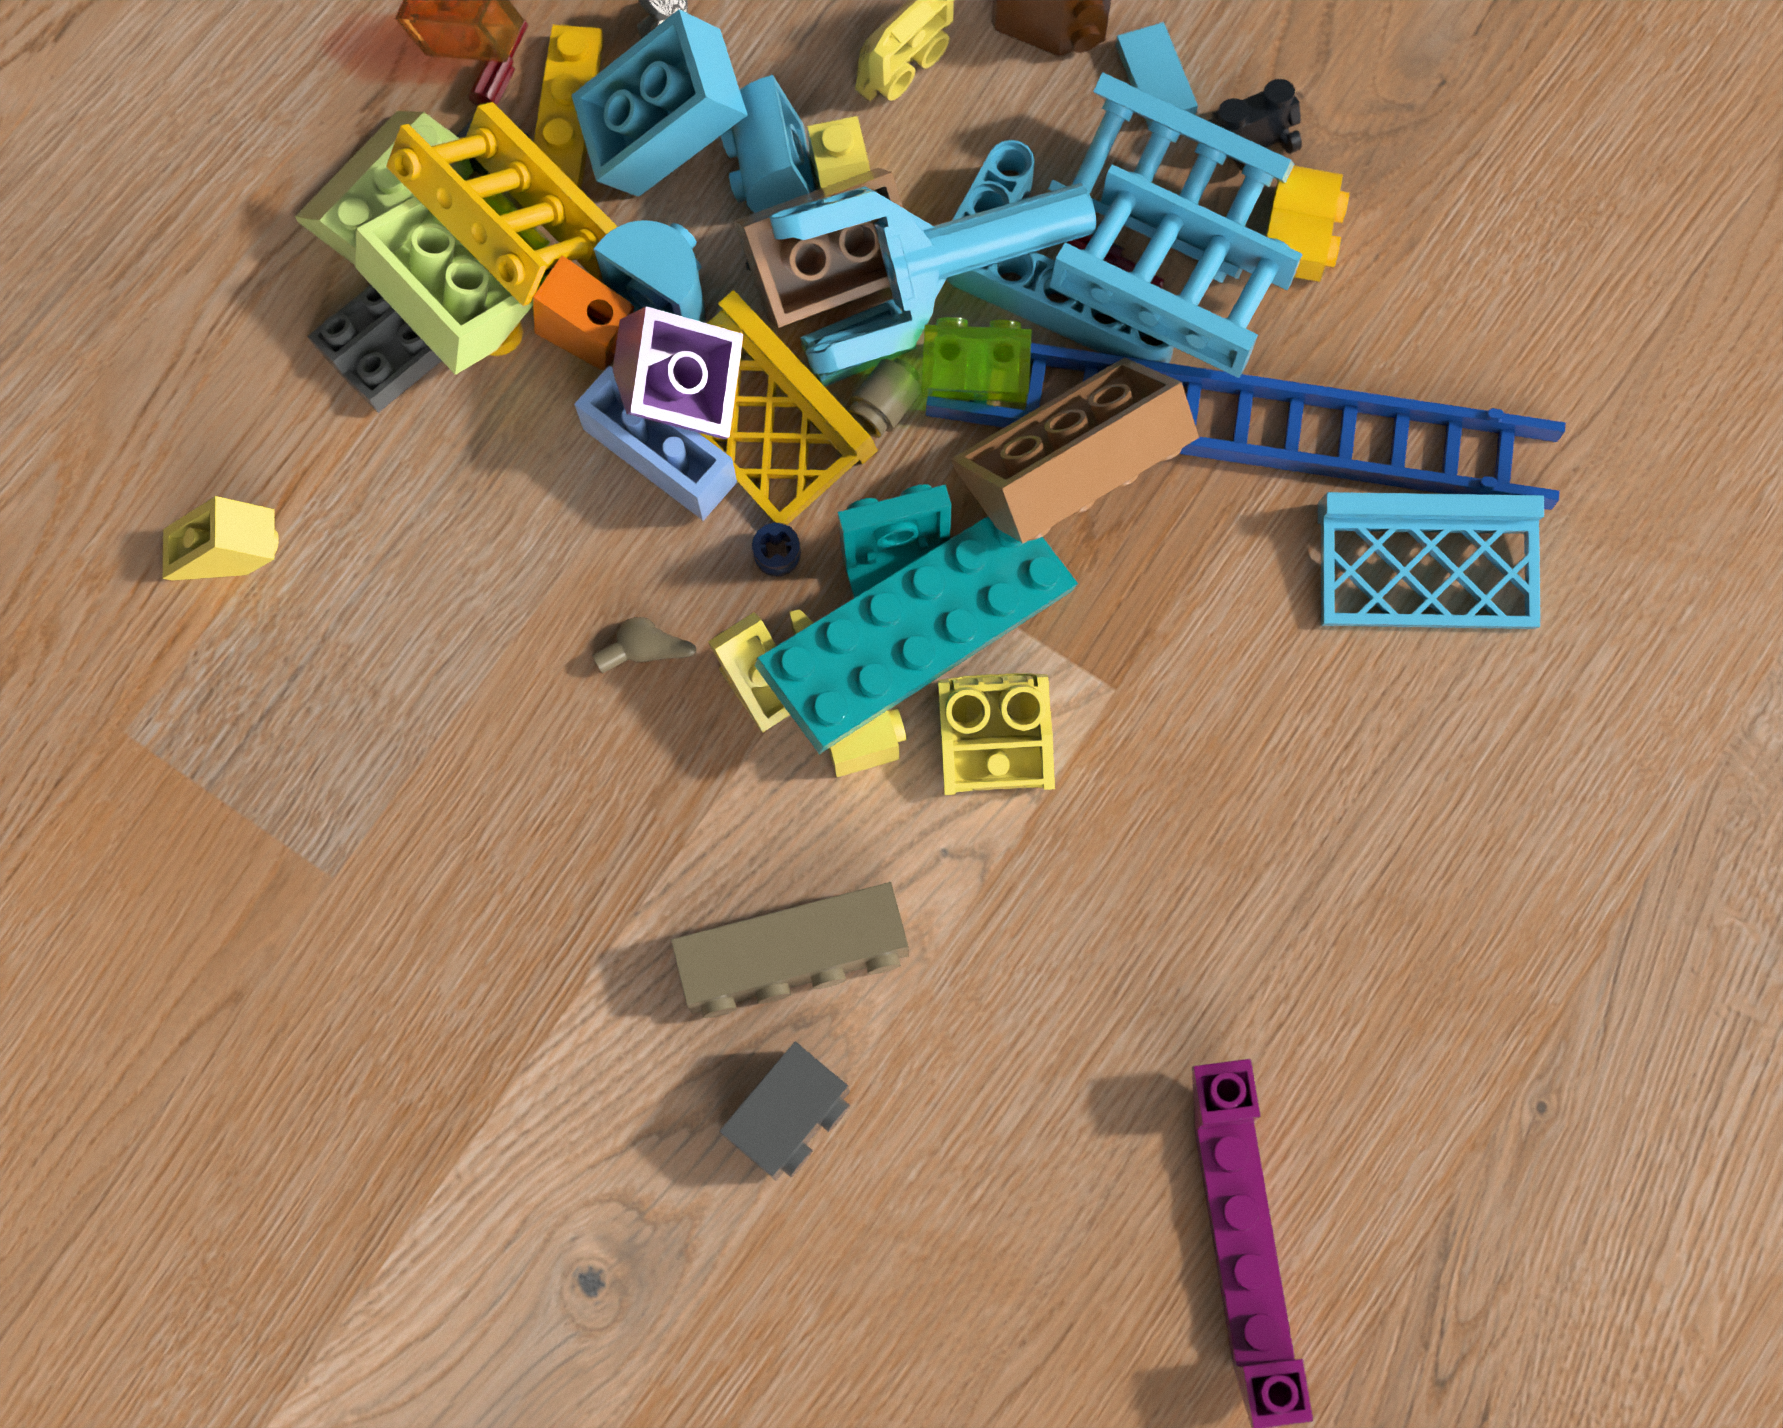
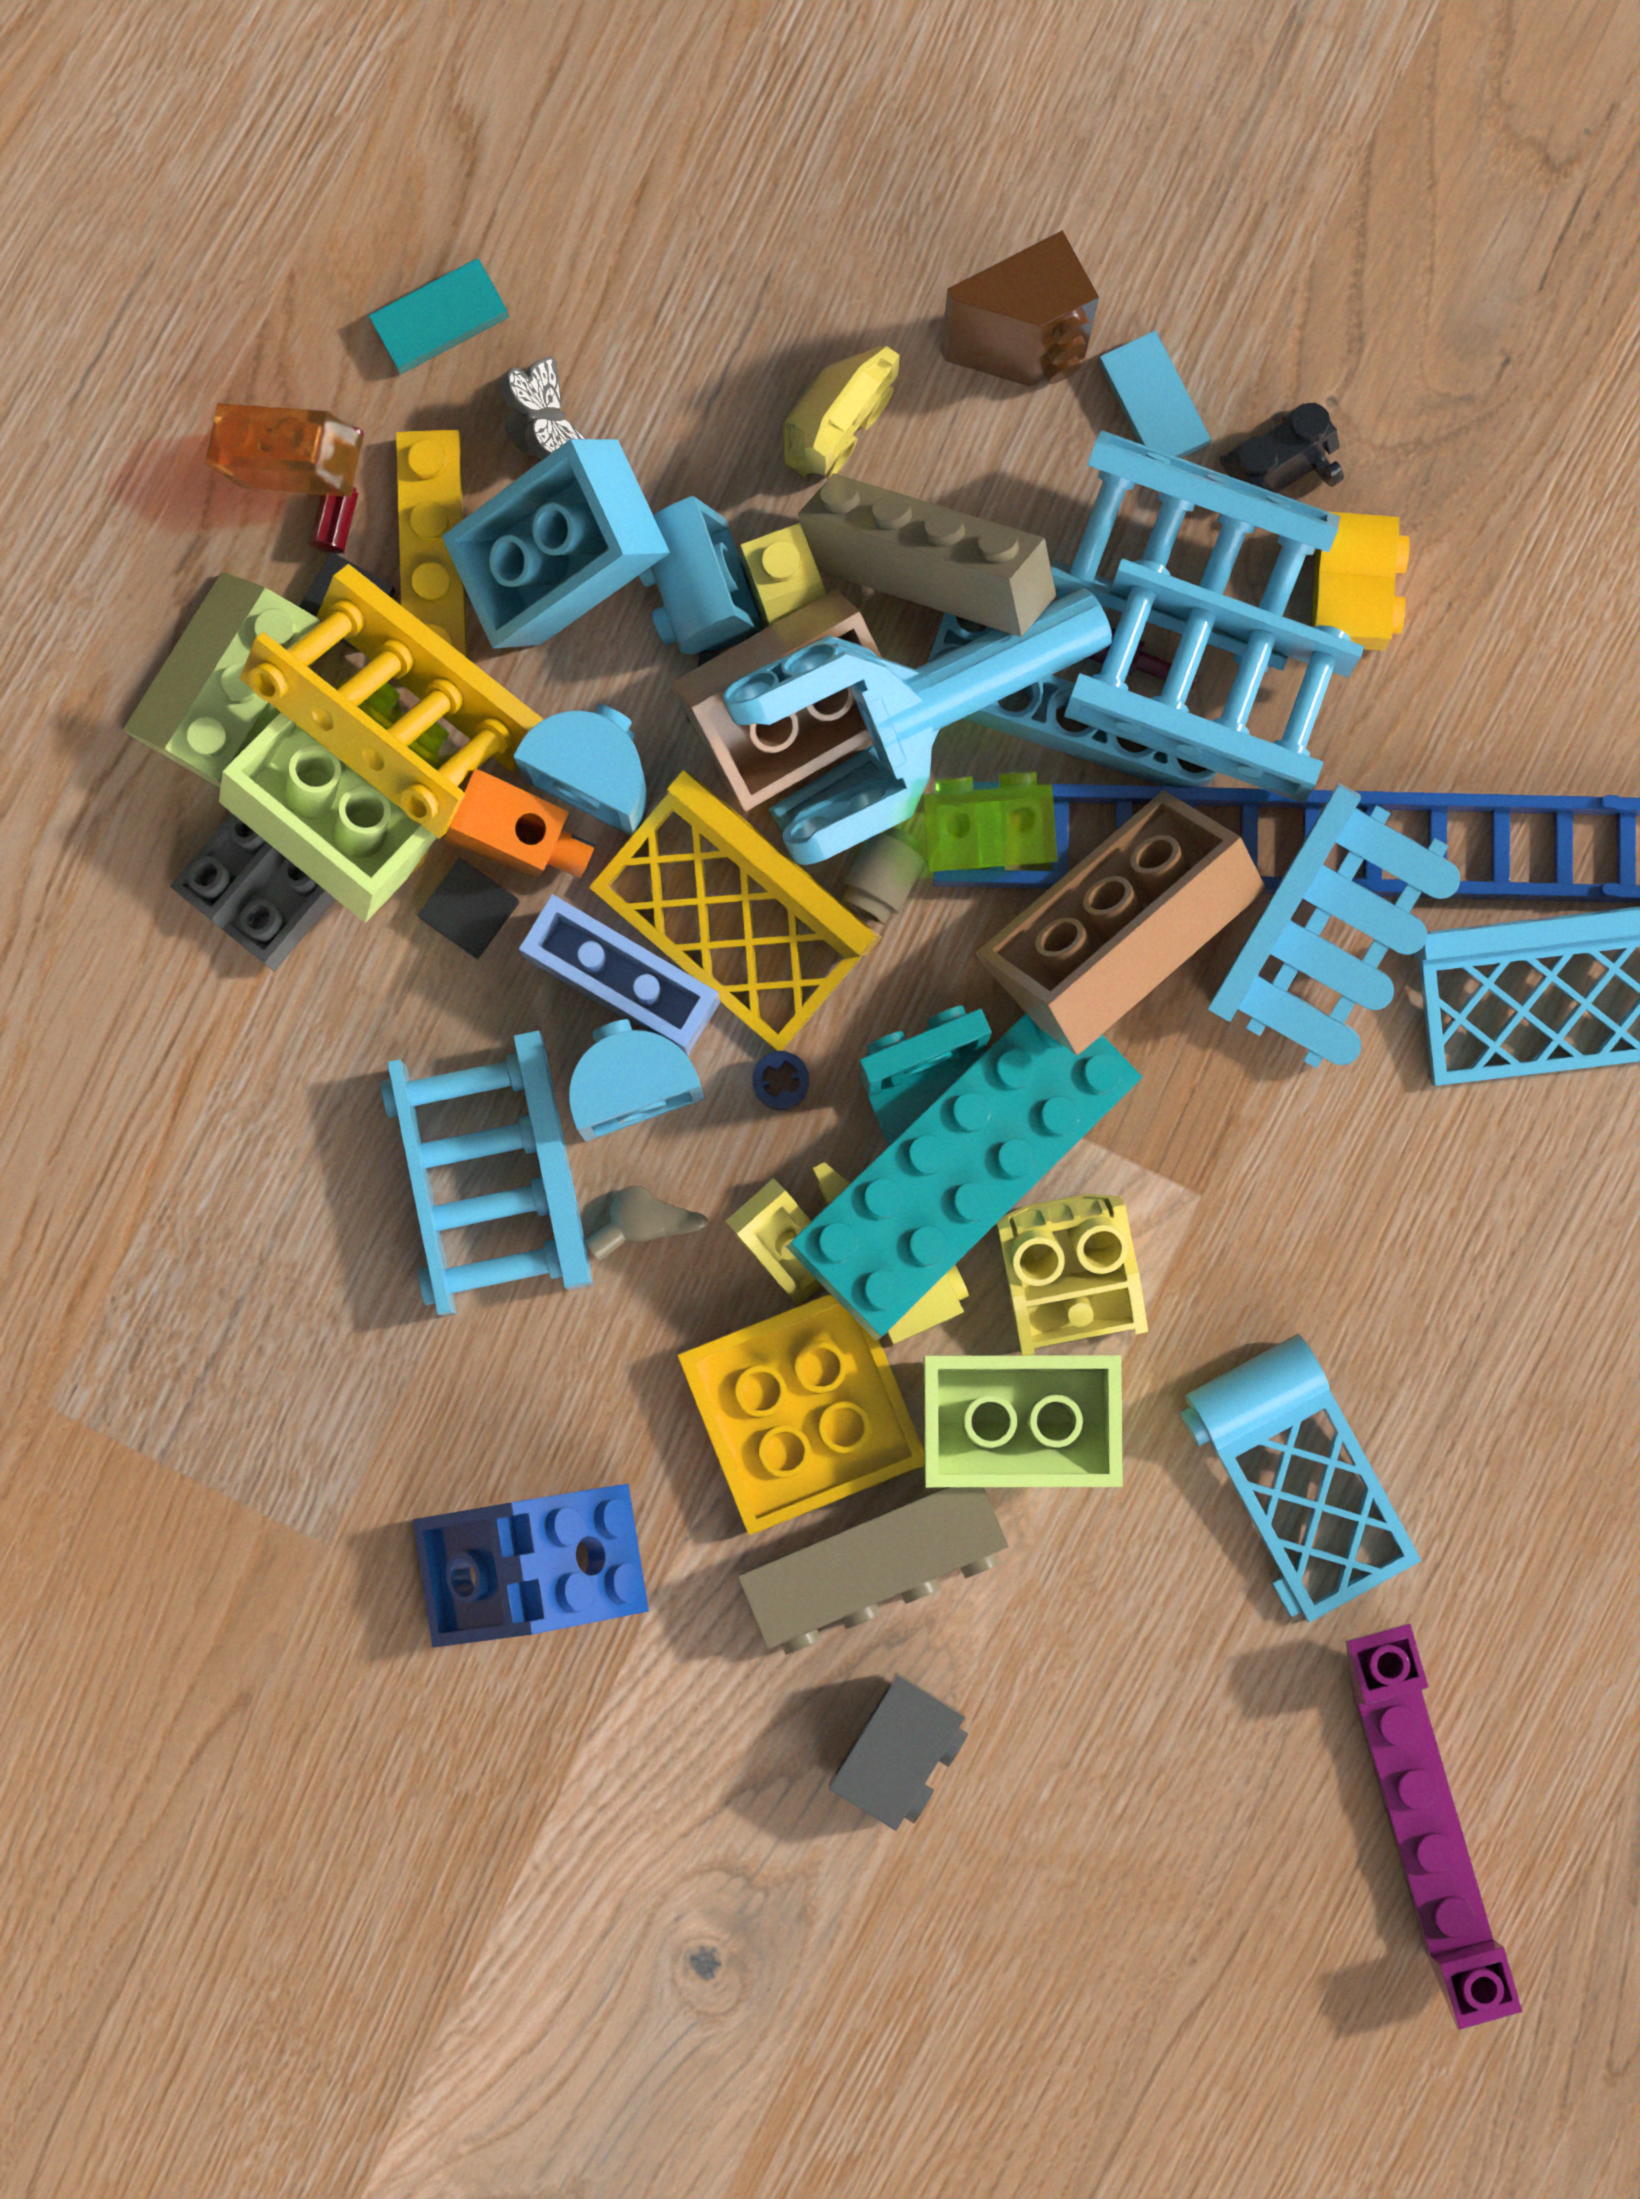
camera: 10 degrees left, 10 degrees up
(219, 541) = (117, 1165): light yellow slope -> none
(481, 906) = (529, 1566): none -> blue bracket
(544, 384) = (468, 908): none -> black piece
(570, 611) = (549, 1194): none -> medium azure fence
(648, 524) = (629, 1080): none -> medium azure brick
(677, 371) = (636, 898): medium lavender slope -> none
(750, 816) = (801, 1412): none -> yellow plate
(935, 839) = (1022, 1421): none -> yellowish green slope
(957, 144) = (929, 554): none -> dark tan brick
(1154, 856) = (1262, 1401): none -> medium azure piece
(1256, 450) = (1338, 896): none -> medium azure fence

